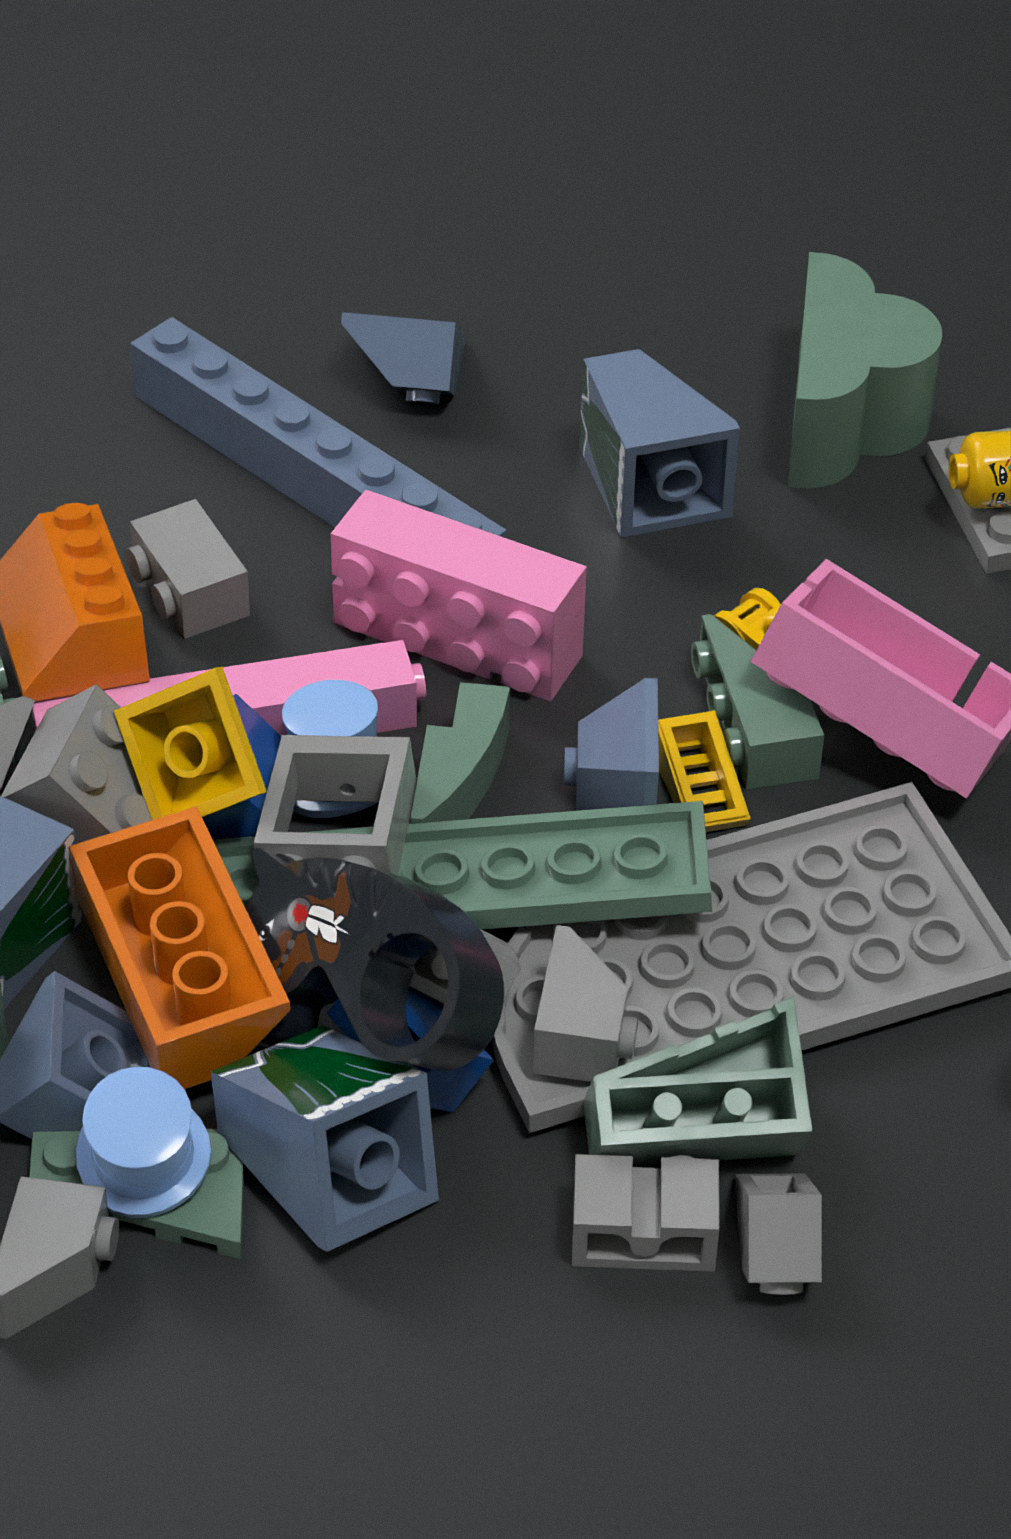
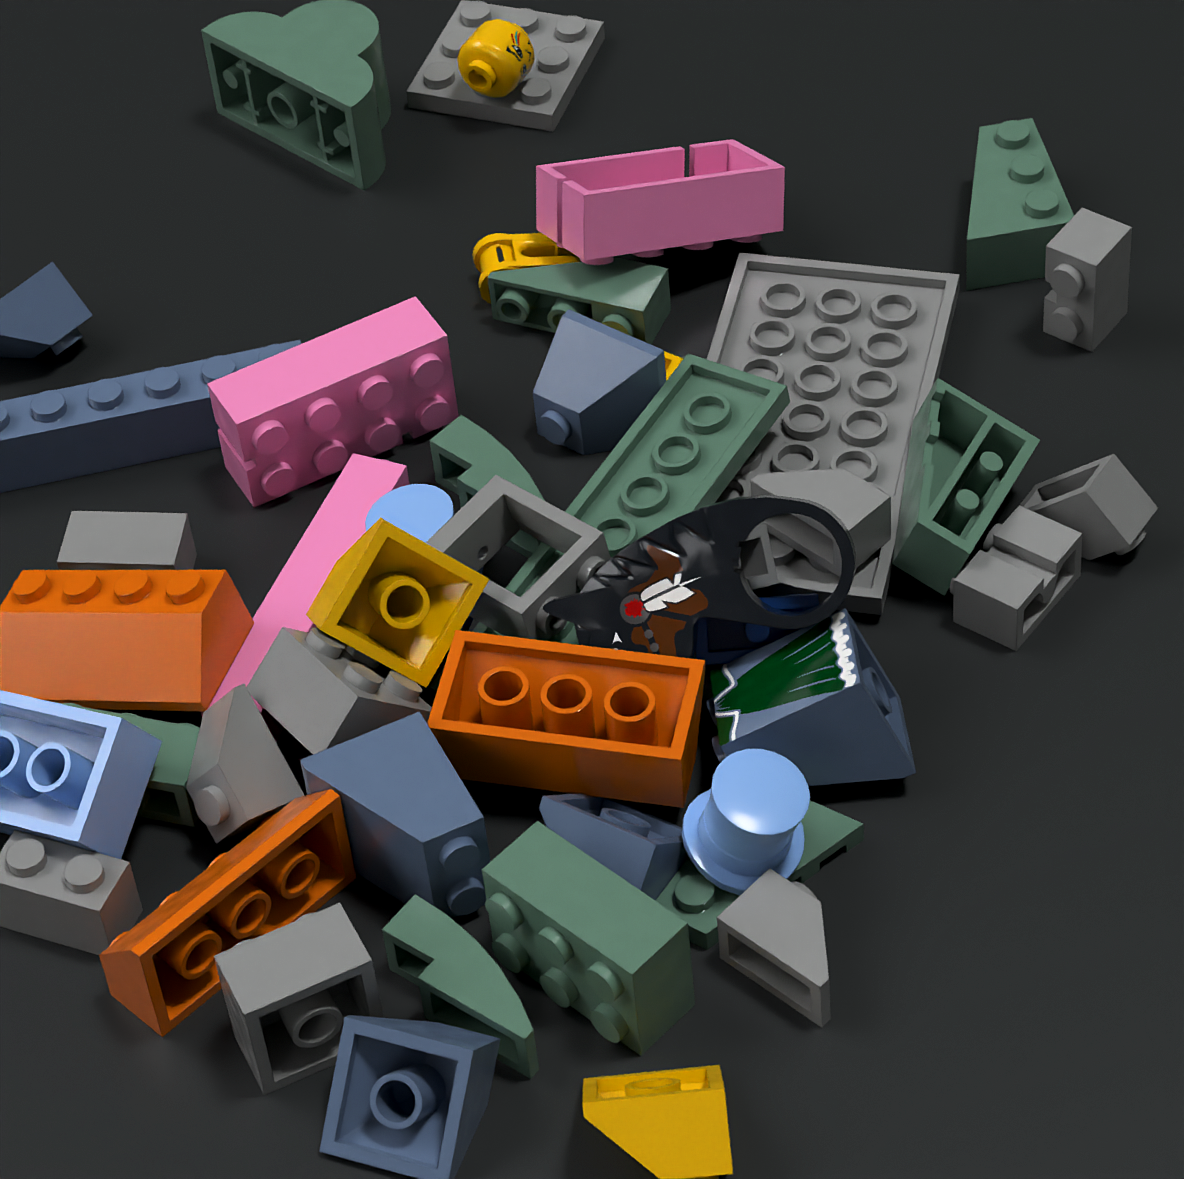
camera: 50 degrees left, 0 degrees up
(655, 445) = (279, 223): sand blue slope -> none

